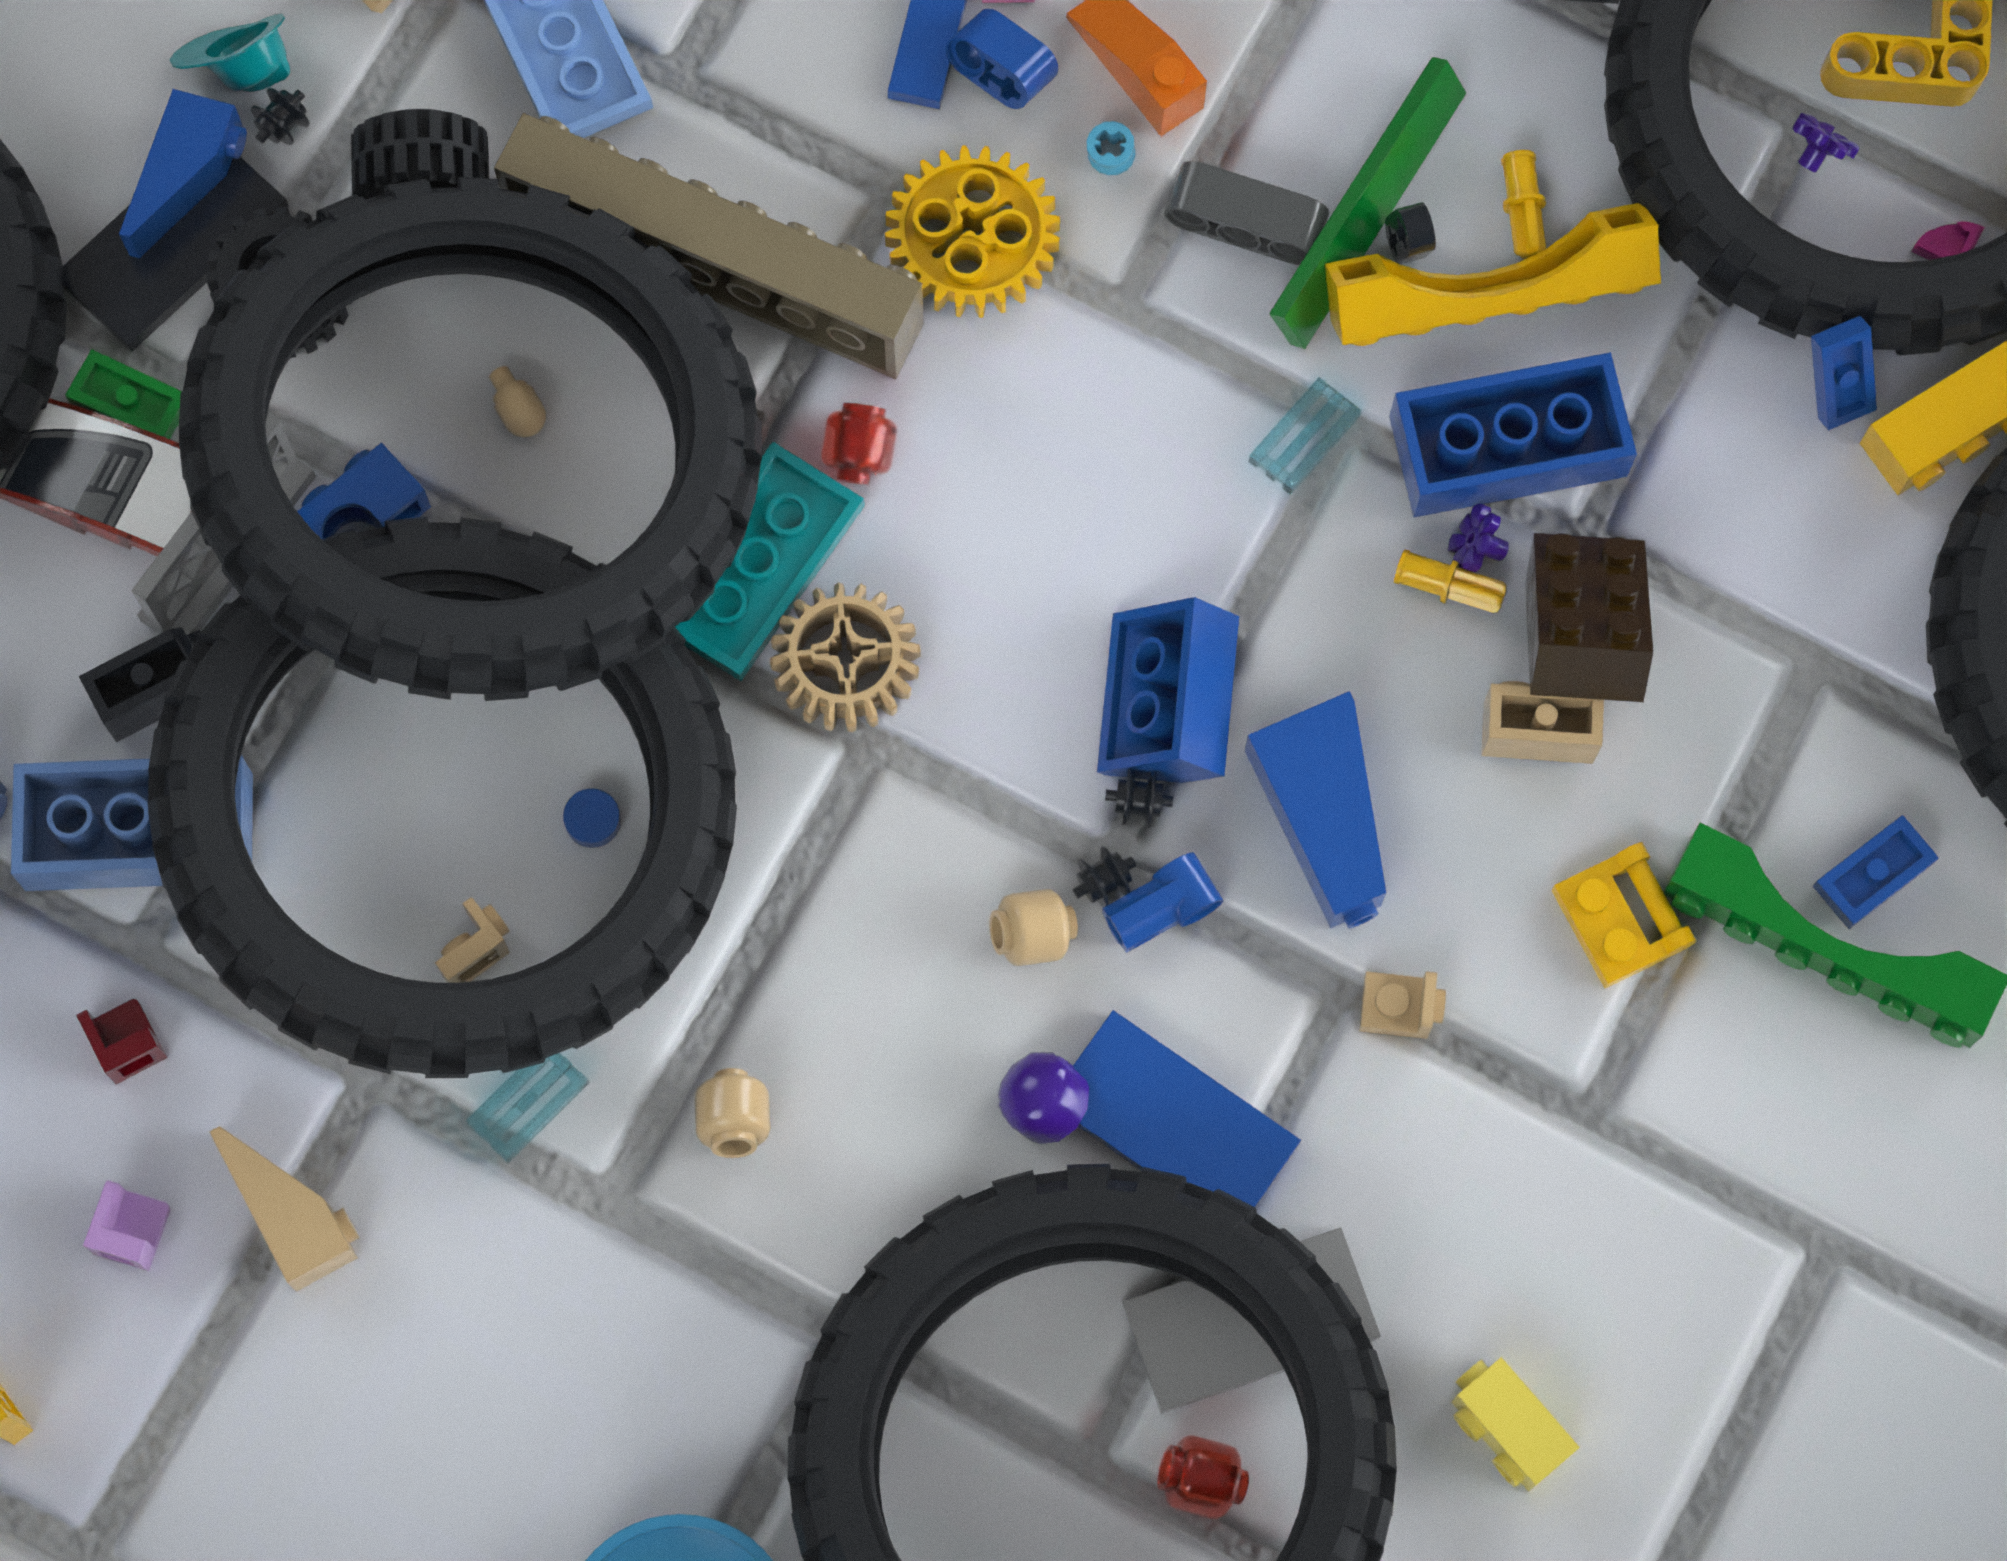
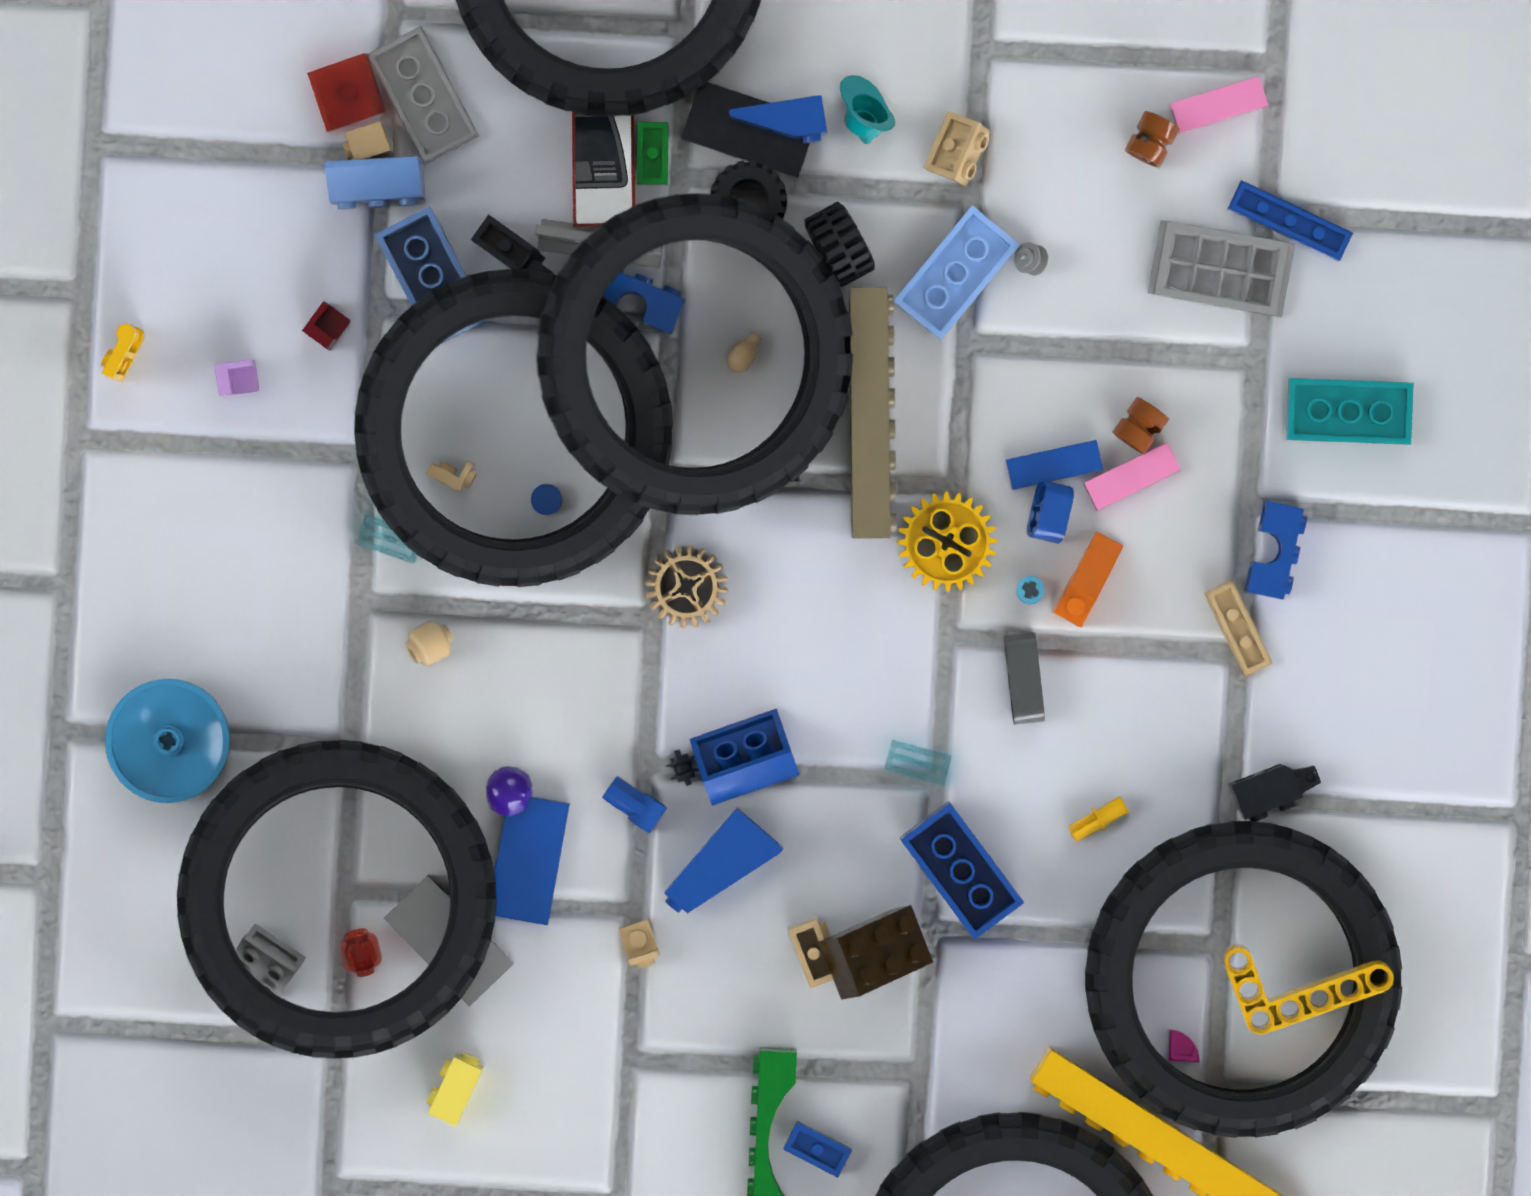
camera: 65 degrees right, 15 degrees up
(280, 116) = (841, 151): black wheel -> none
(294, 1220) = (277, 457): tan slope -> none
(788, 539) = (743, 530): teal plate -> none
(858, 442) = (803, 538): clear red head -> none
(1032, 927) = (591, 746): tan head -> none
(1104, 877) = (633, 769): black wheel -> none
(1369, 198) = (1059, 738): green tile -> none
(1410, 233) = (1047, 770): black beam -> none
(1450, 582) = (871, 872): yellow axle -> none
(1478, 539) = (899, 876): dark purple plant -> none
(1599, 256) = (1079, 869): yellow arch -> none
(1607, 924) = (728, 1028): yellow plate -> none
(1821, 142) = (1188, 963): dark purple plant -> none
(1844, 372) = (1074, 1024): blue plate -> none

